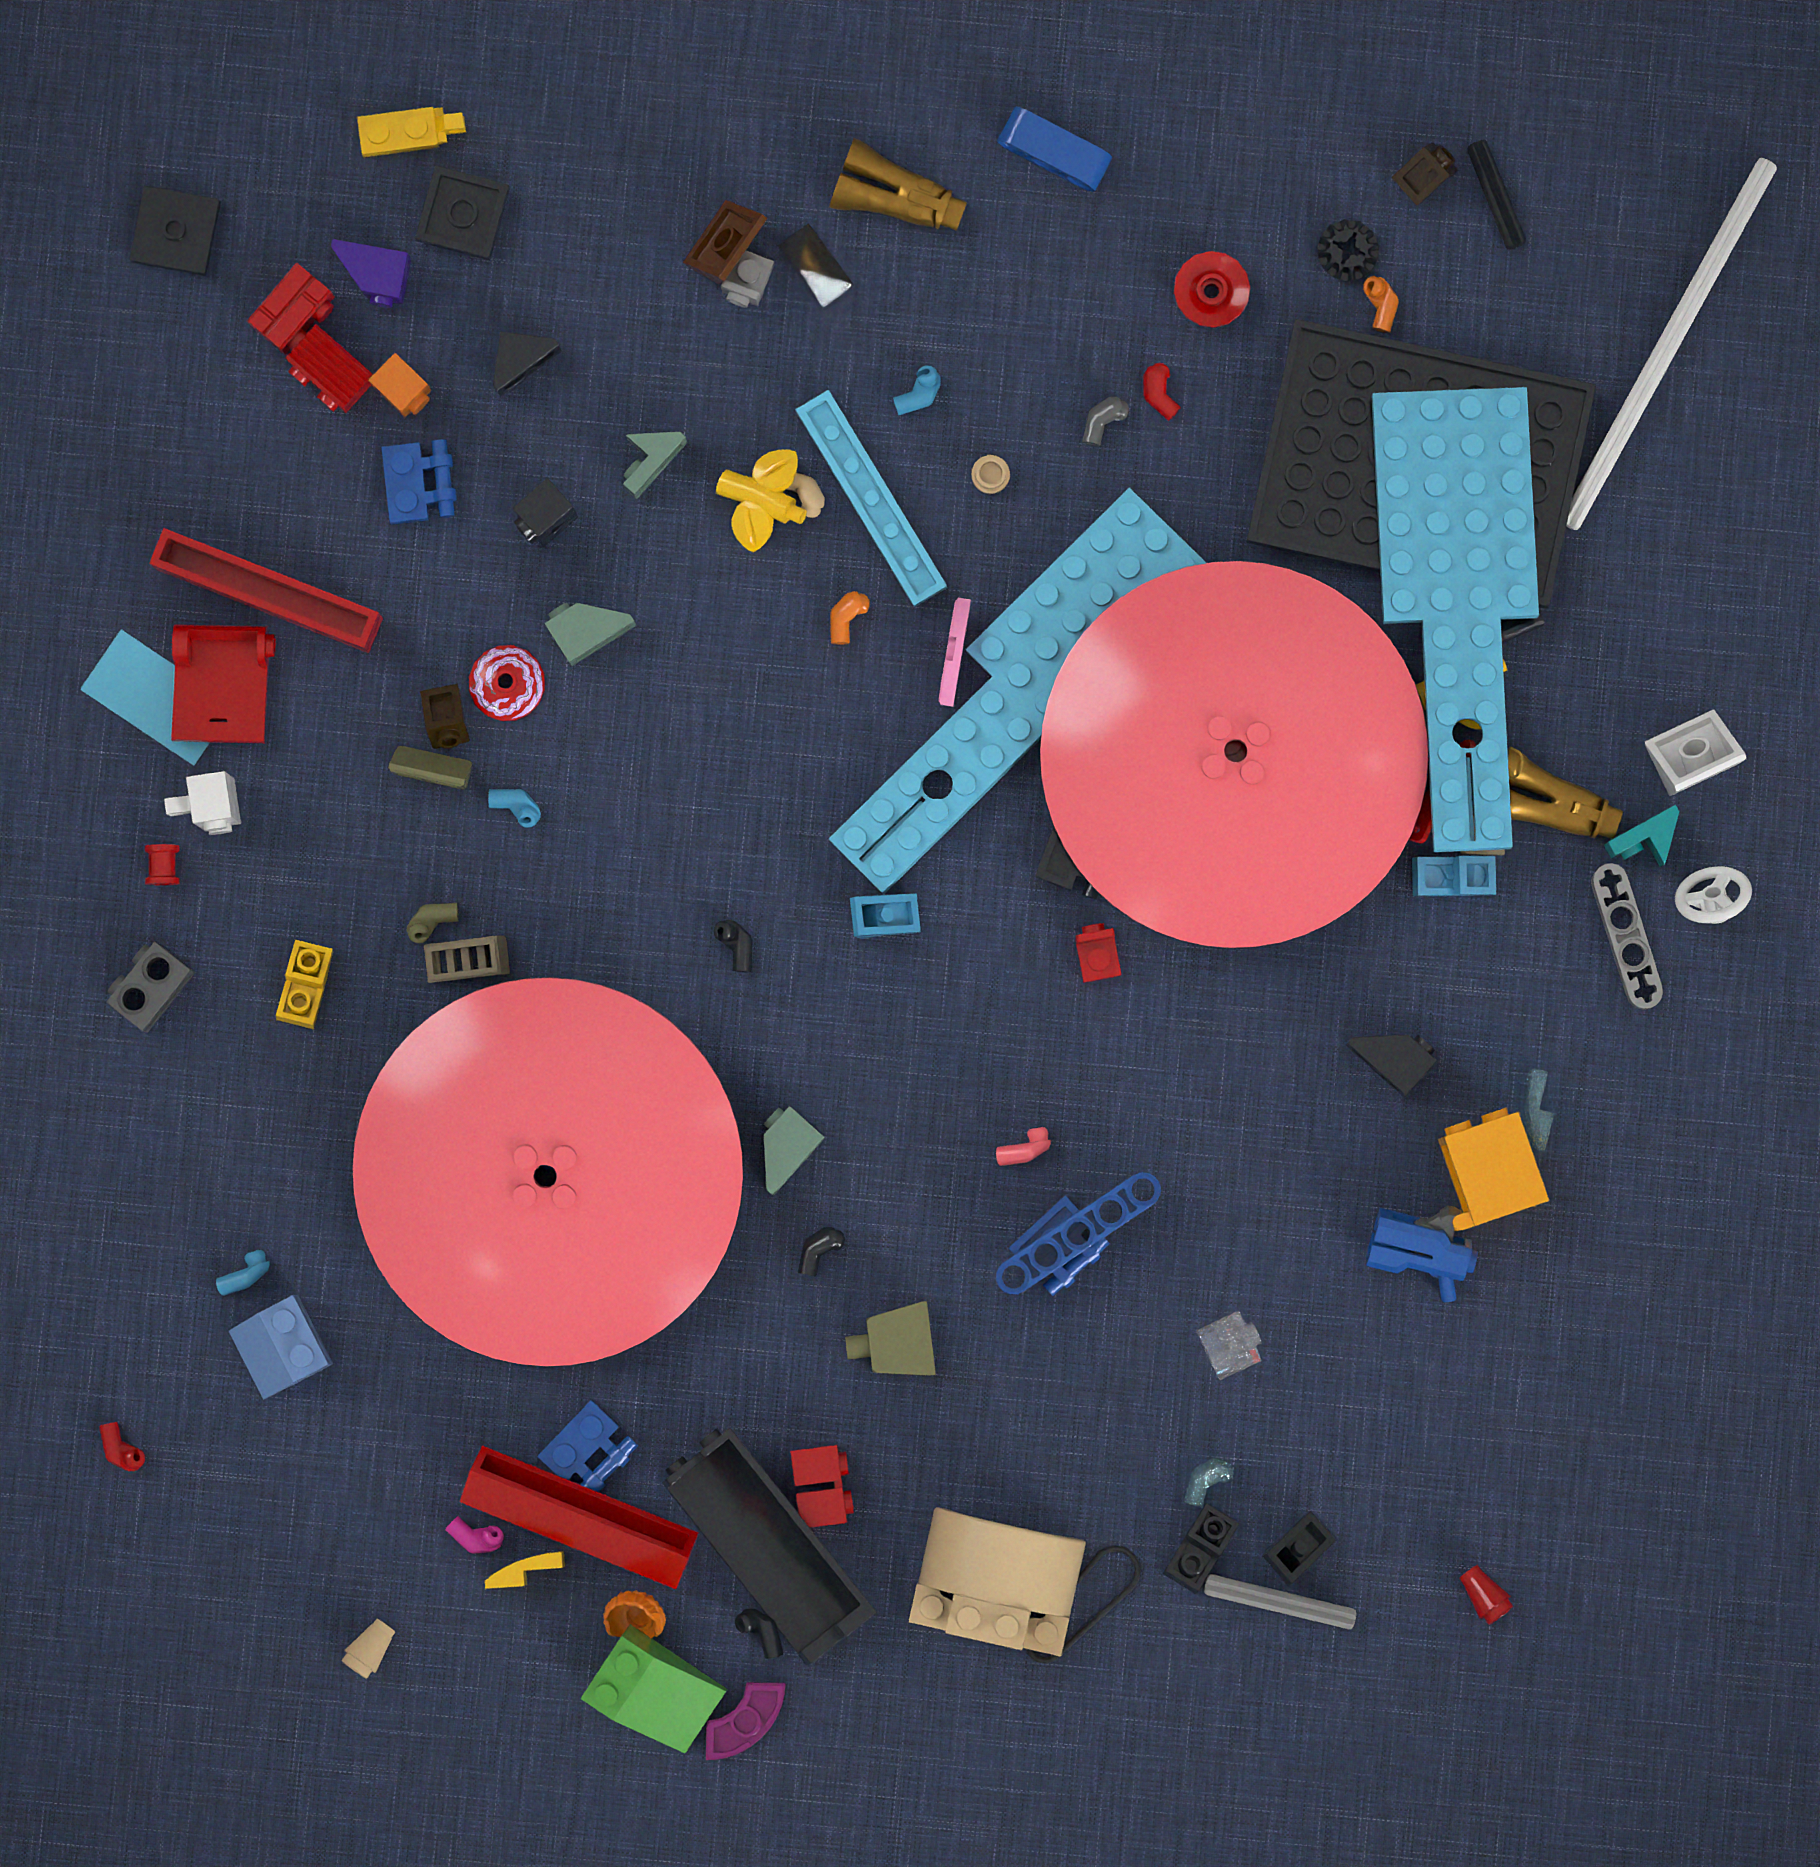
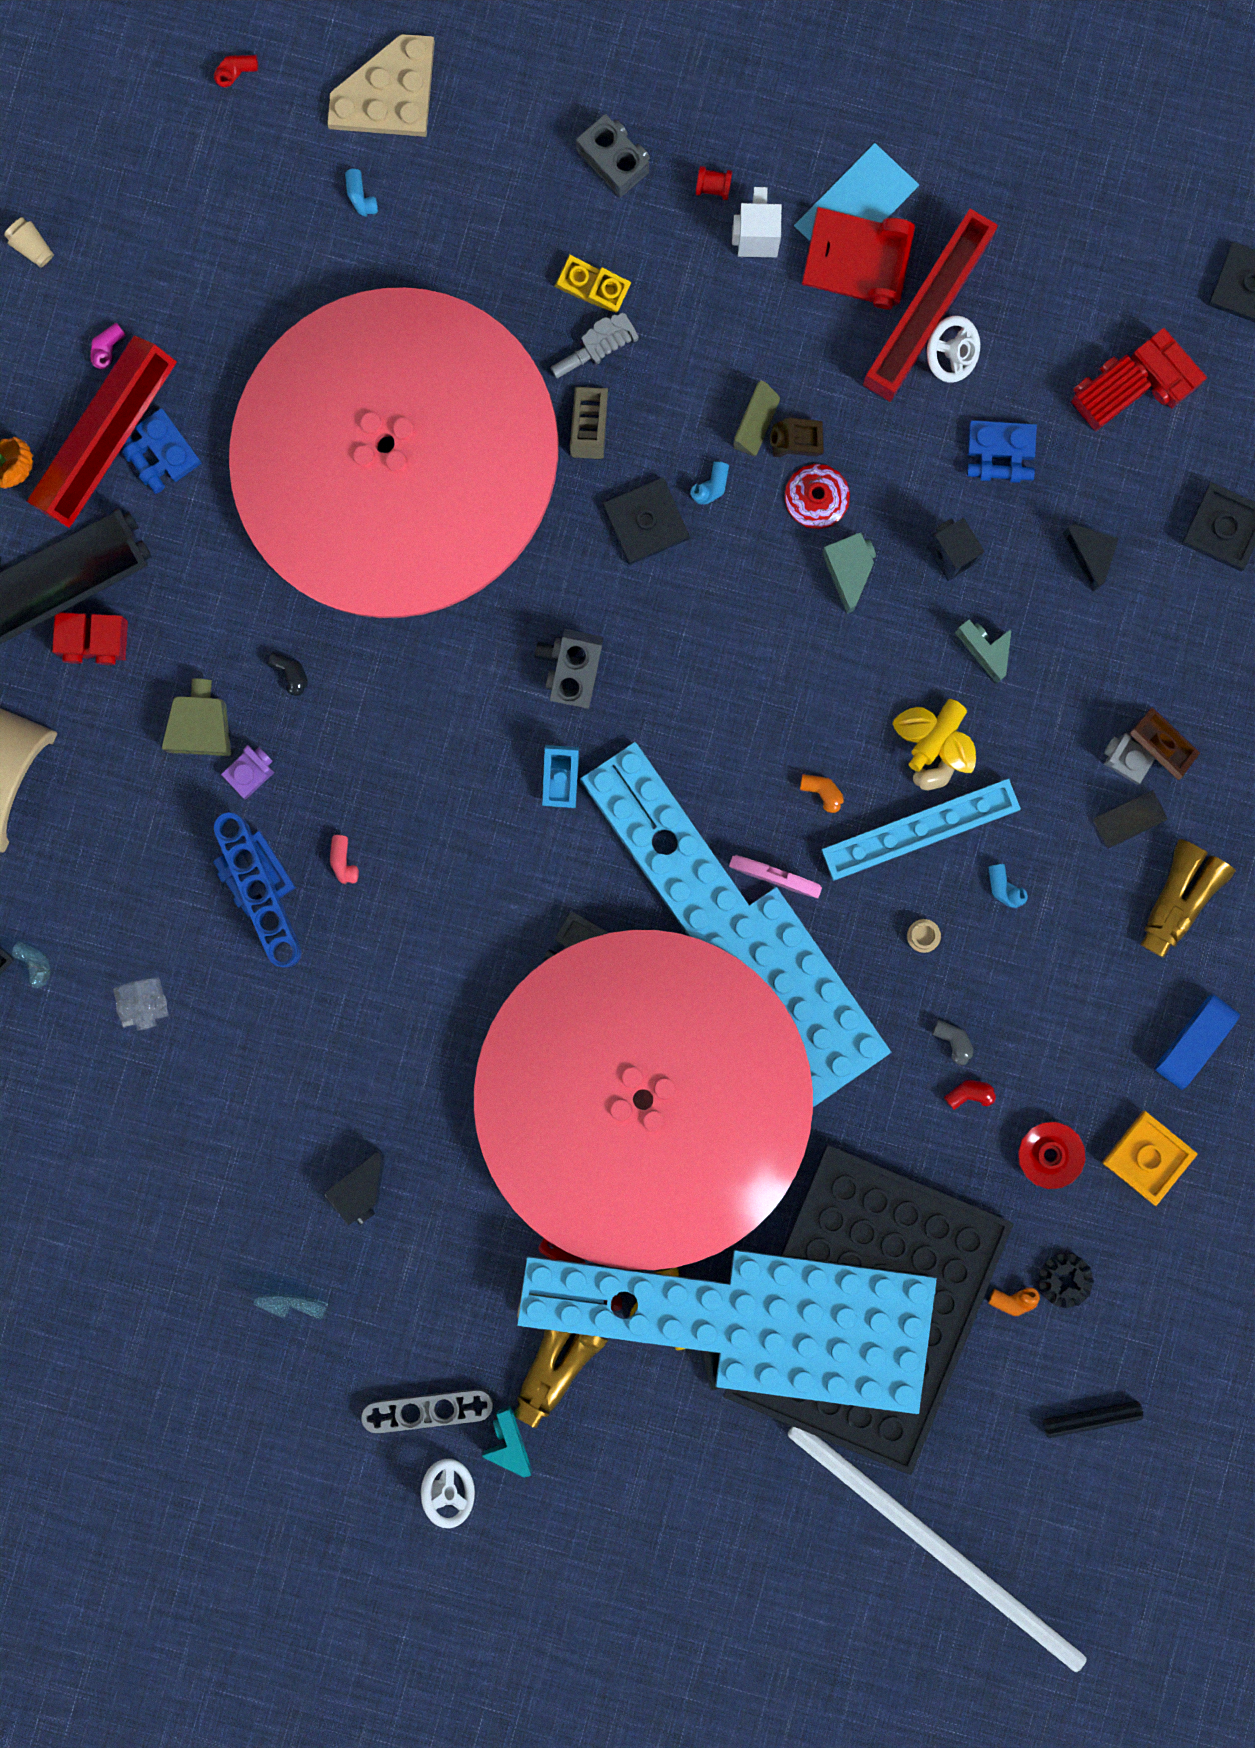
camera: 95 degrees right, 0 degrees up
(115, 1263) = (388, 91): none -> tan plate
(280, 1346) = (293, 215): medium blue slope -> none
(311, 547) = (961, 350): none -> white piece
(368, 962) = (597, 342): none -> light grey piece
(375, 270) = (1188, 444): dark purple slope -> none
(401, 386) = (1085, 449): orange brick -> none
(428, 918) = (628, 395): olive arm -> none
(515, 1573) = (66, 373): yellow slope -> none
(570, 872) = (646, 521): none -> black plate
(758, 912) = (580, 669): none -> dark grey brick
(787, 1146) = (381, 660): sand green slope -> none
(941, 1274) = (249, 771): none -> medium lavender bracket
(1097, 953) = (496, 952): red bracket -> none
(1194, 180) = (1149, 1158): none -> light orange plate
(1422, 1245) = (193, 1183): blue piece -> none
(1425, 172) = (1123, 1361): dark brown bracket -> none
(1454, 876) = (506, 1270): dark azure slope -> none
(1491, 1168) = (244, 1255): light orange container -> none
(1694, 752) = (575, 1500): white slope -> none

